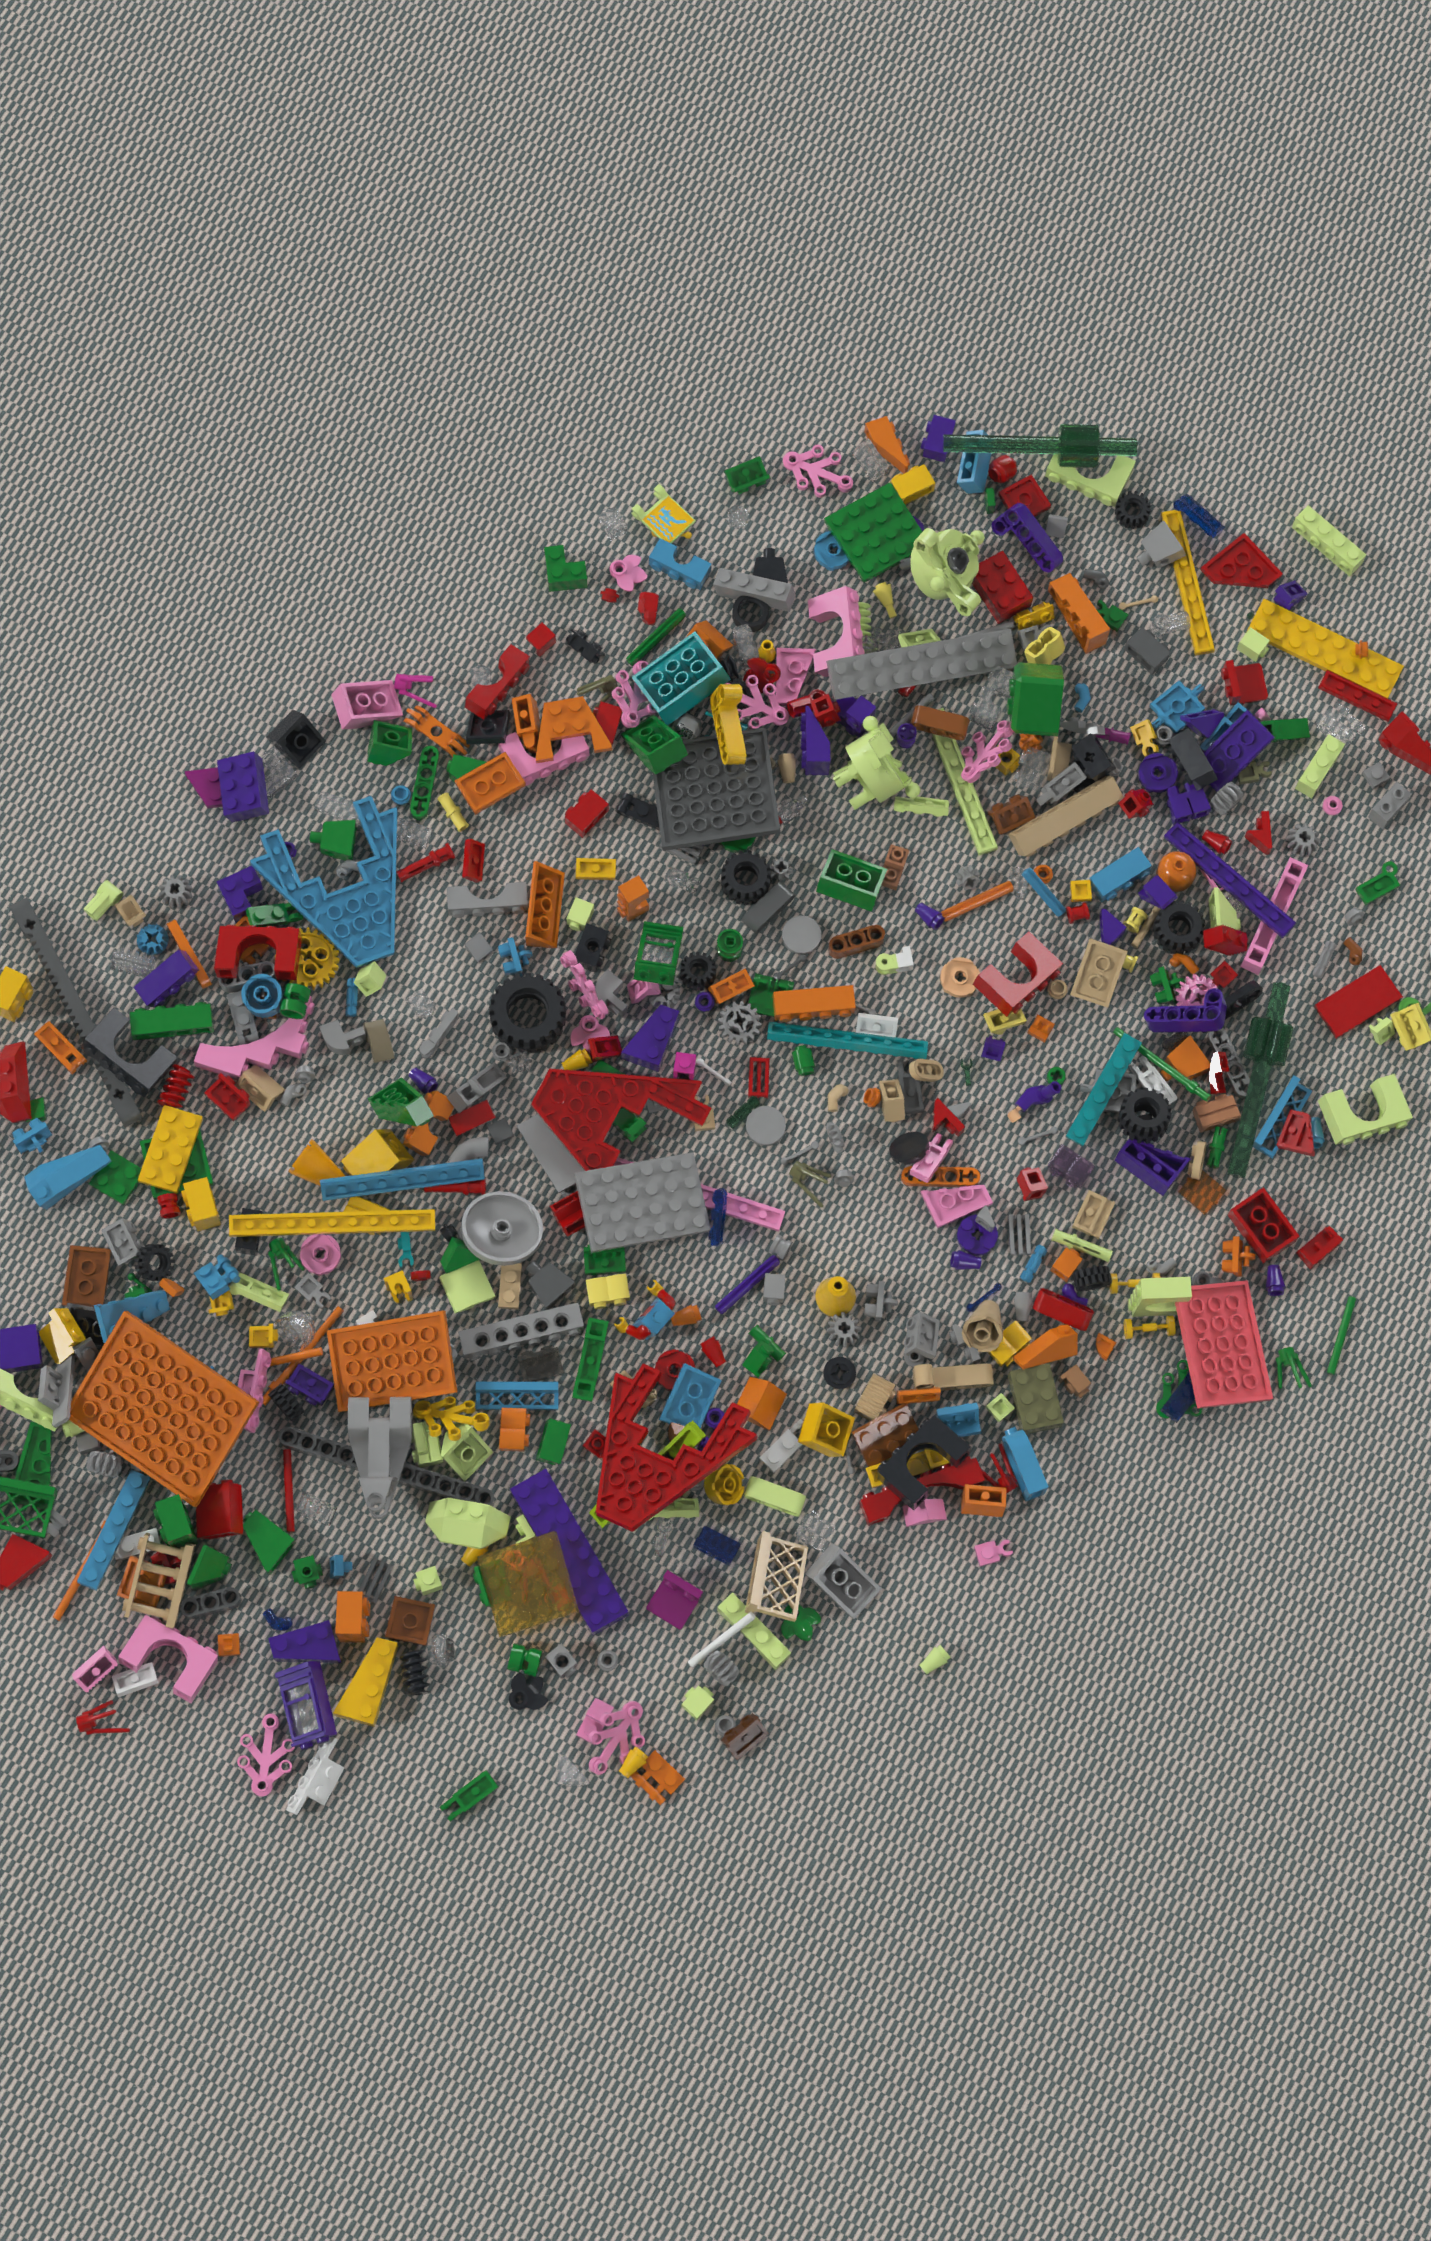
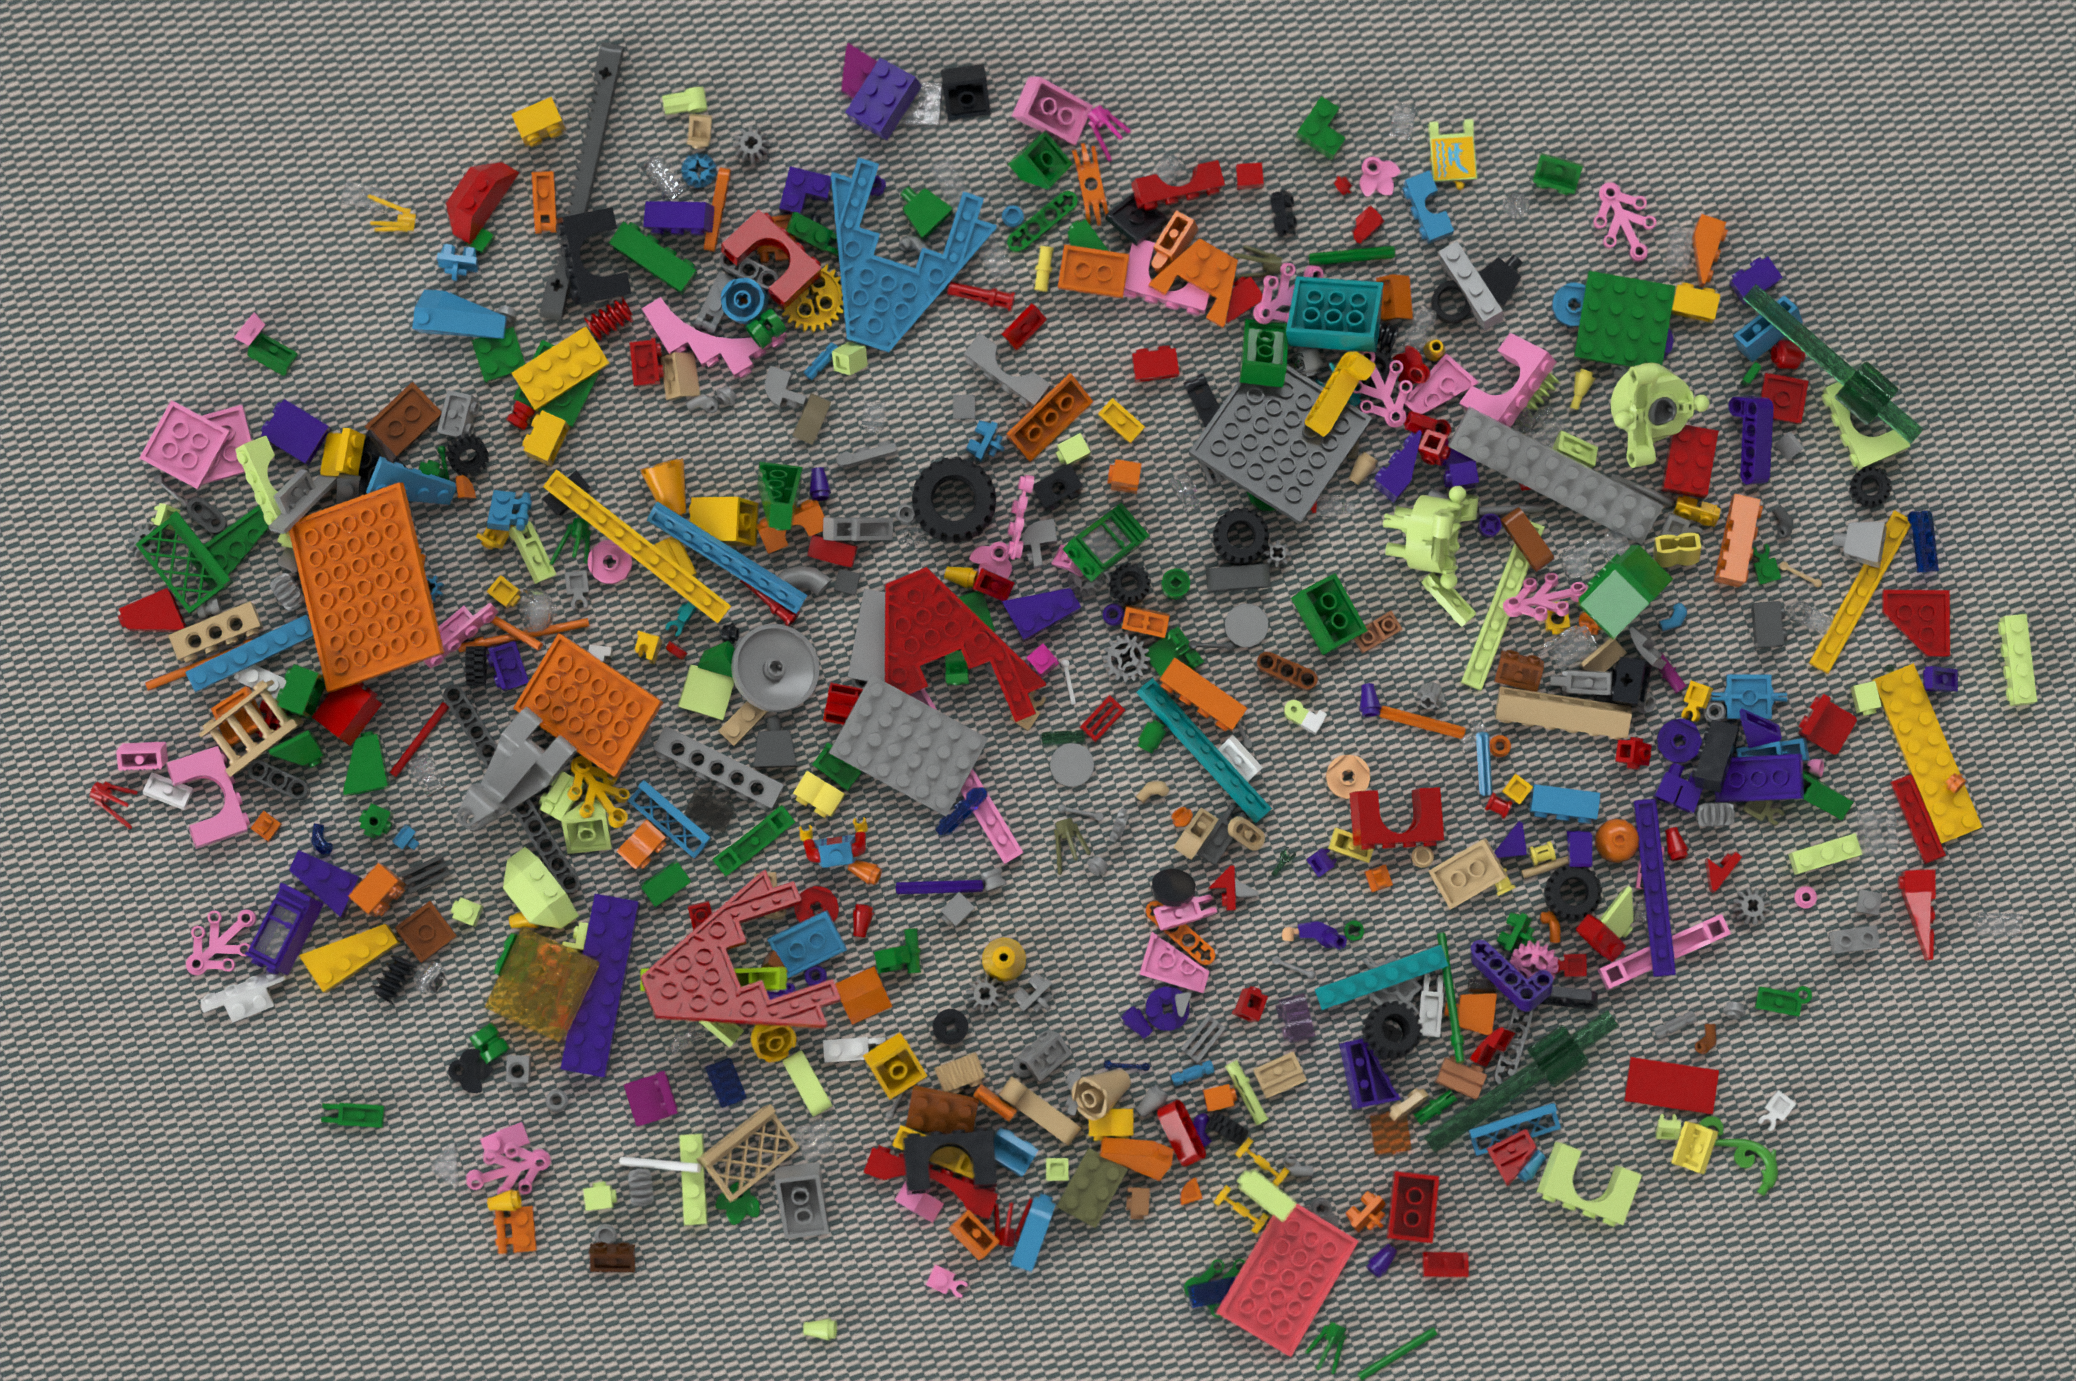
camera: 45 degrees right, 10 degrees up
(85, 1506) = (182, 639): none -> tan brick

